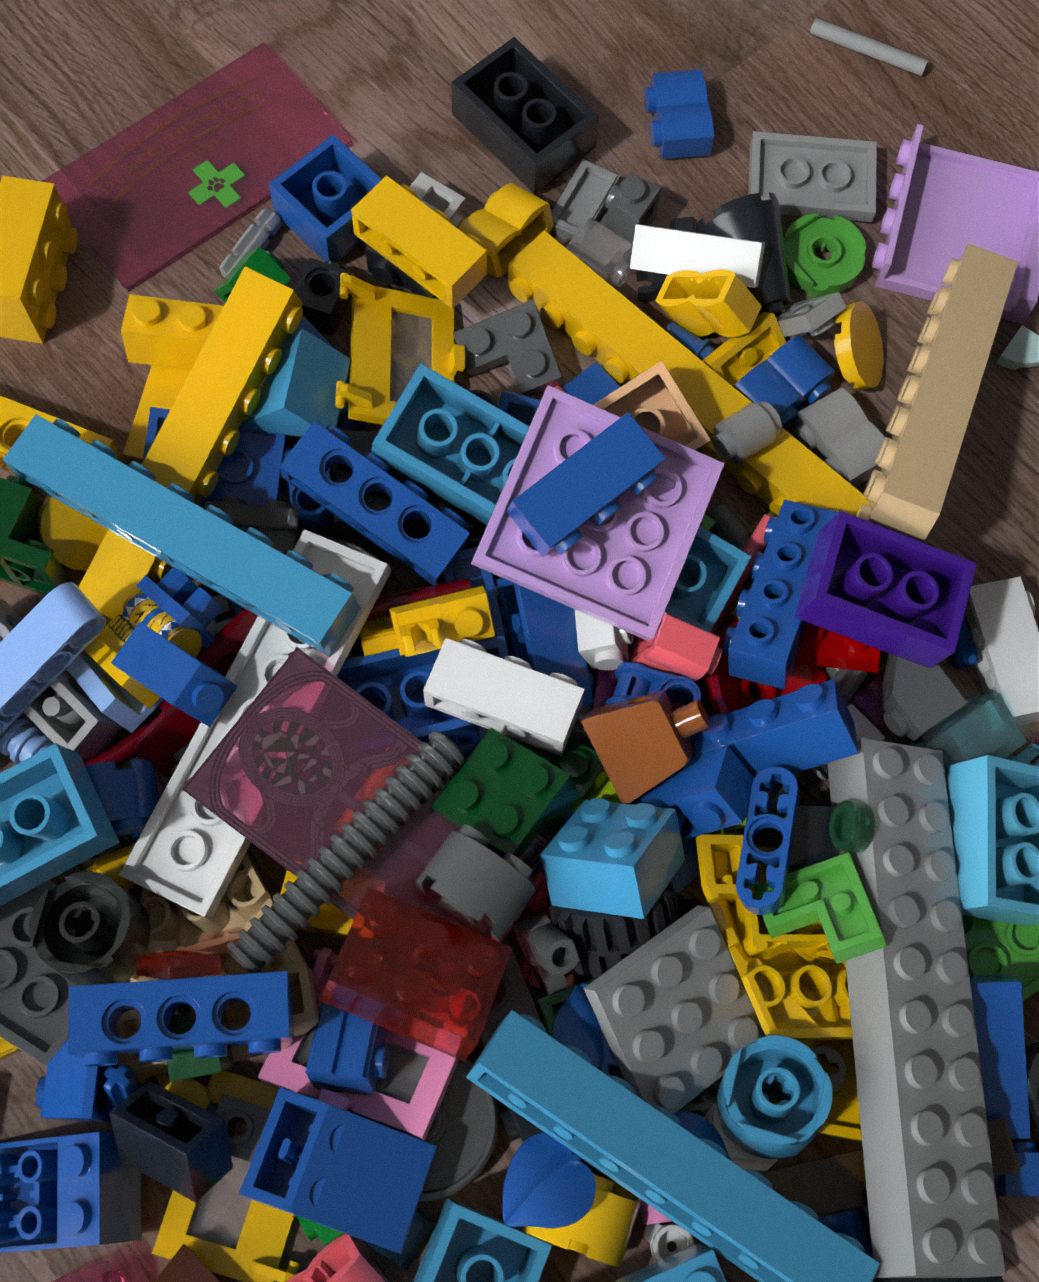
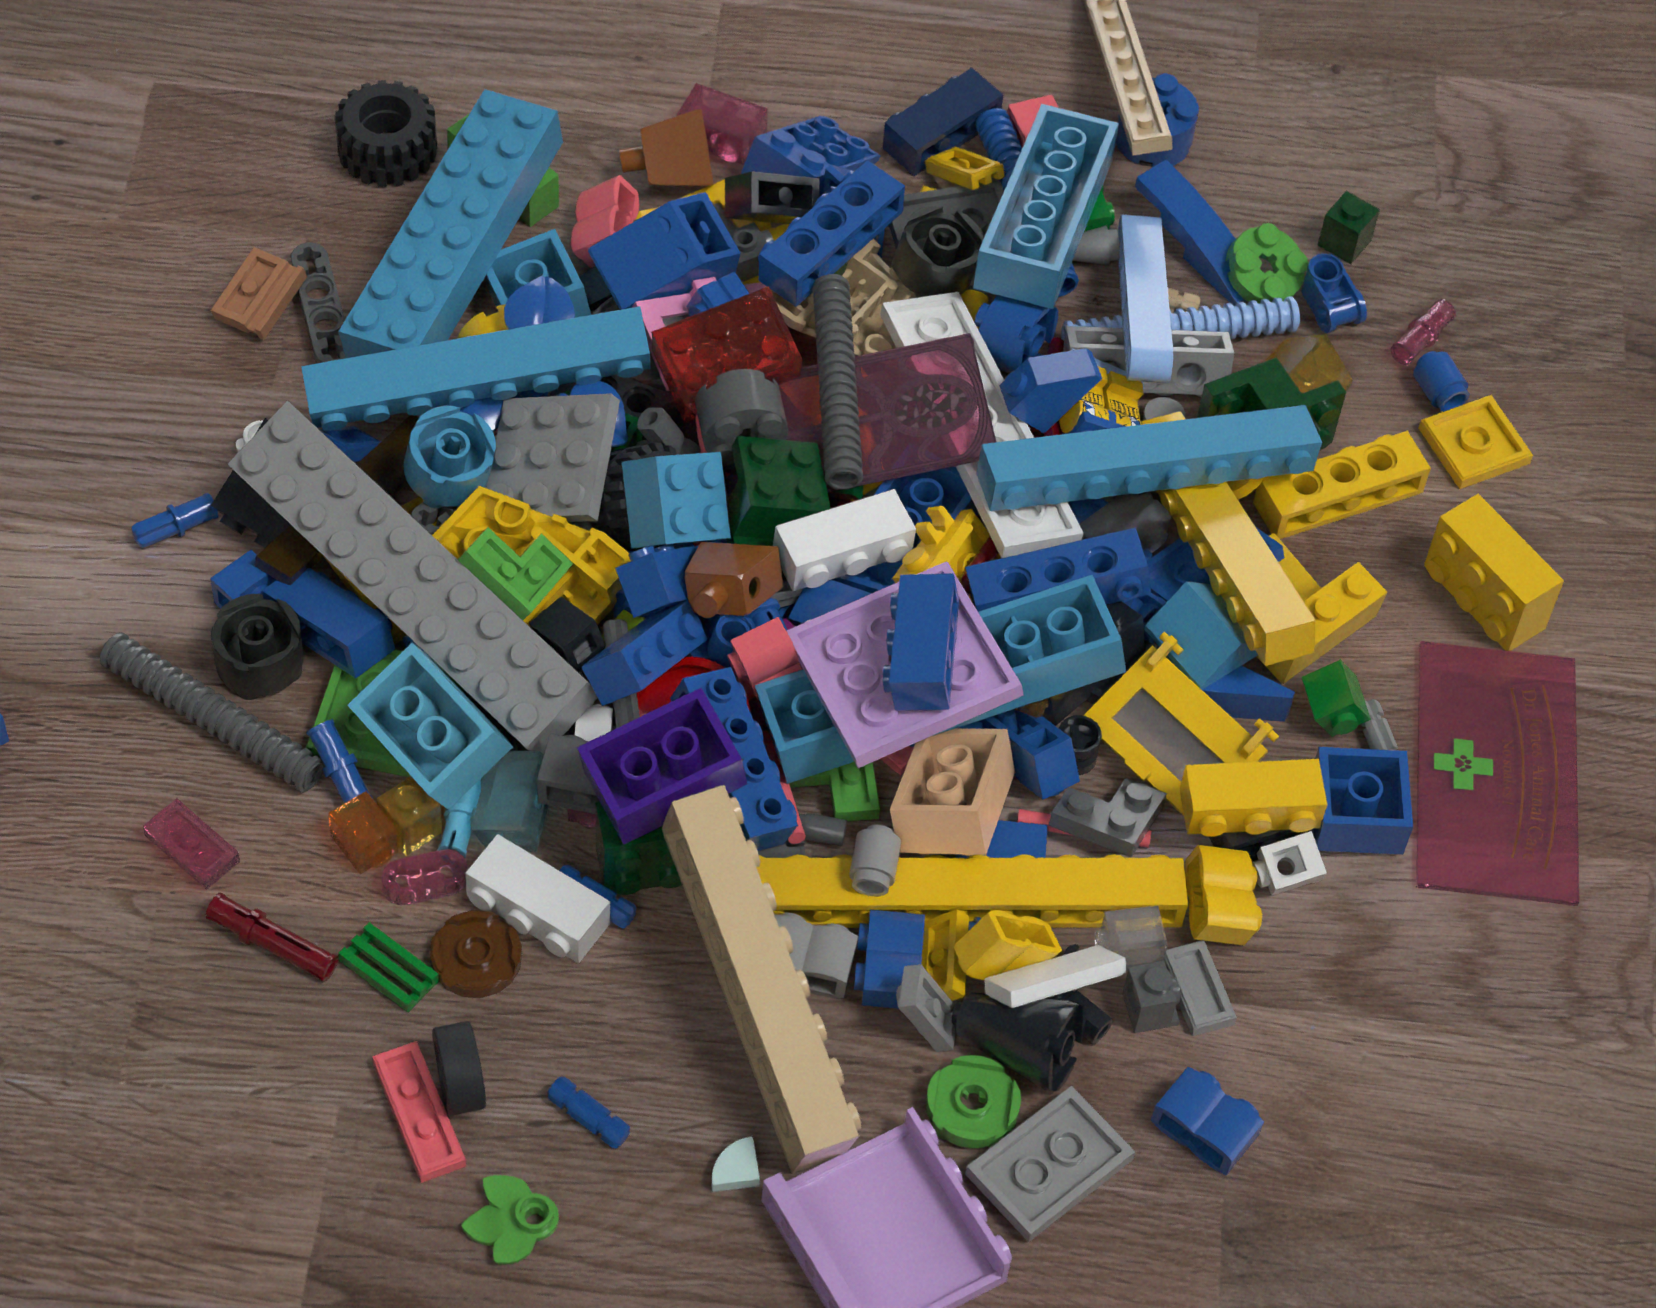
camera: 135 degrees right, 15 degrees down
(178, 964) = (865, 257): clear red tile -> none
(322, 311) = (1290, 726): black brick -> none
(524, 114) = (1314, 993): black brick -> none
(748, 873) = (589, 599): blue beam -> none
(852, 826) = (543, 627): clear green tile -> none
(859, 346) = (864, 1026): yellow tile -> none

